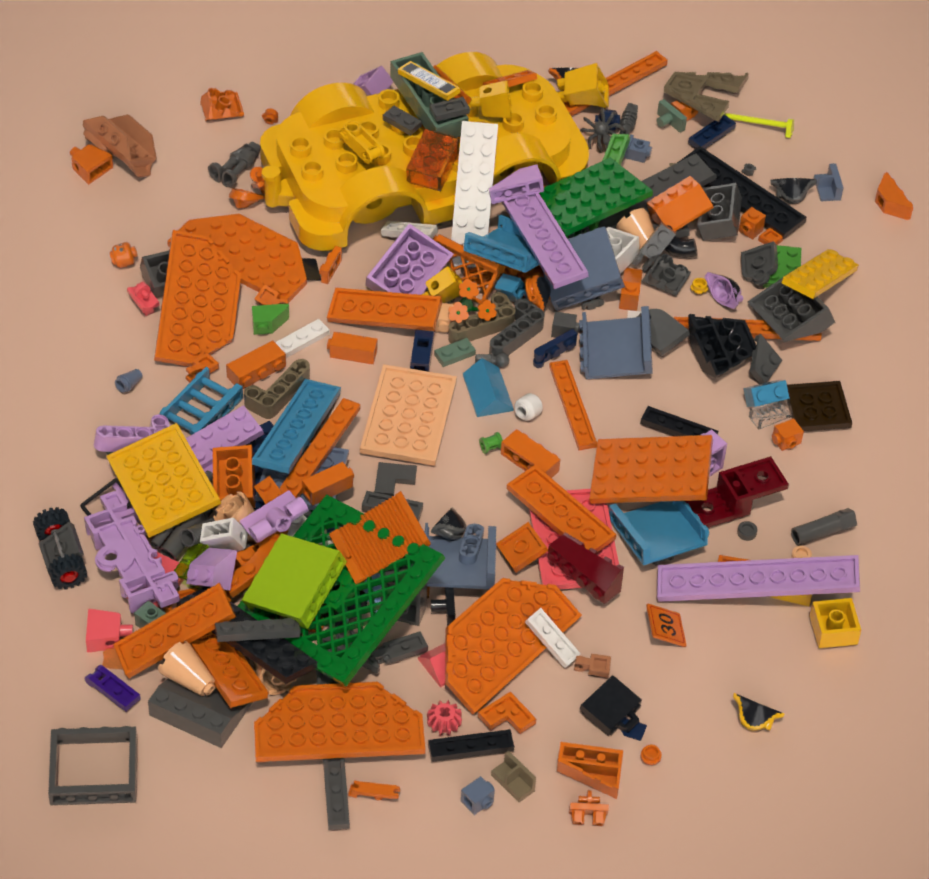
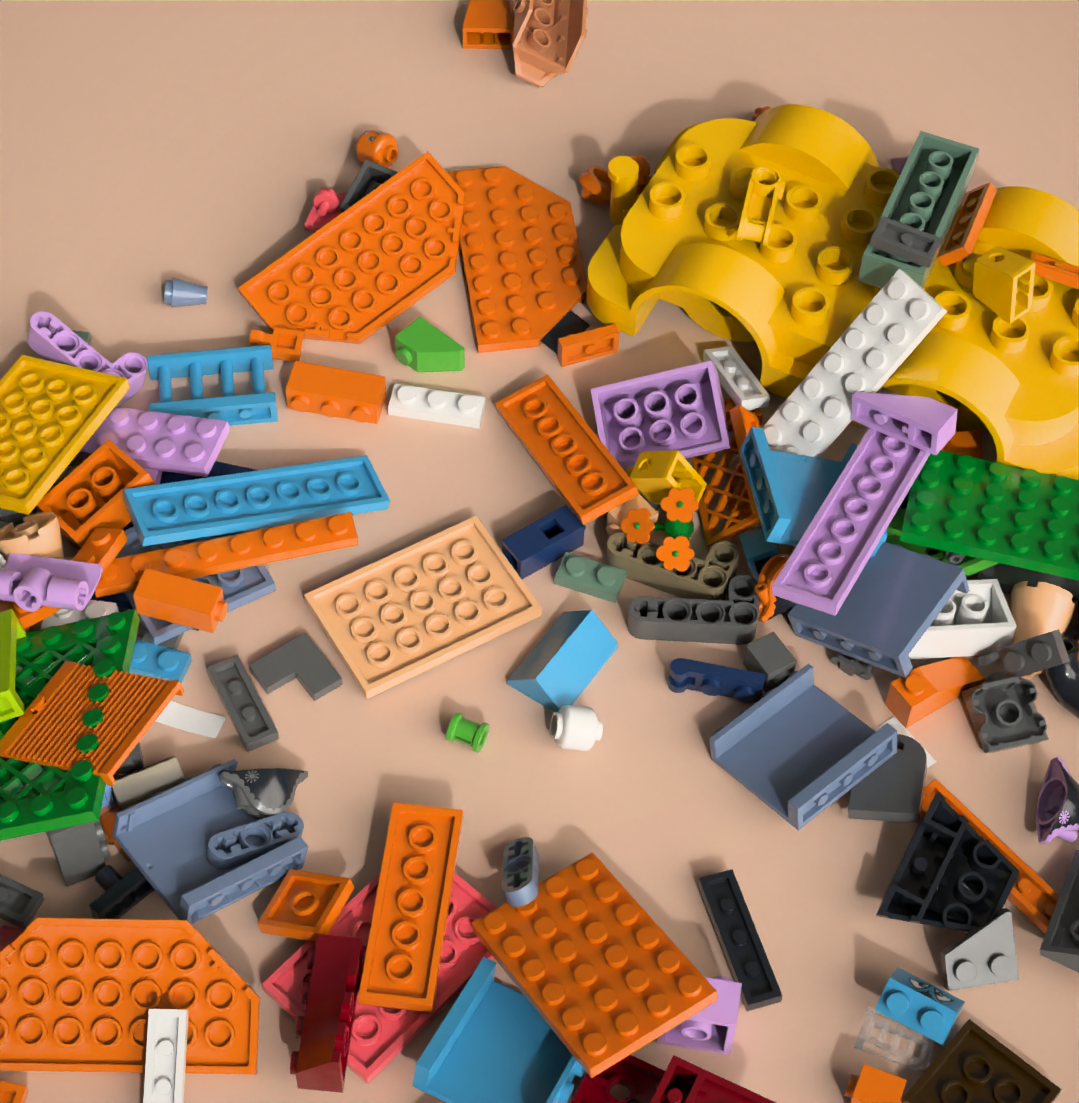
camera: 50 degrees right, 5 degrees up
(221, 104) = (726, 64): orange slope -> none
(242, 158) = (645, 144): dark grey piece -> none
(268, 296) = (463, 325): orange plate -> none
(271, 402) = (320, 444): dark tan beam -> none
(353, 347) = (472, 466): orange brick -> none
(402, 120) = (854, 220): dark grey plate -> none
(429, 80) = (926, 187): tile -> none
(432, 160) = (818, 296): clear orange brick -> none
(500, 359) = (629, 636): dark grey axle -> none
(527, 453) = (490, 795): orange brick -> none
(573, 405) = (643, 778): orange tile -> none
(577, 462) = (520, 872): none -> sand blue beam
(699, 286) = (1036, 761): yellow plate -> none

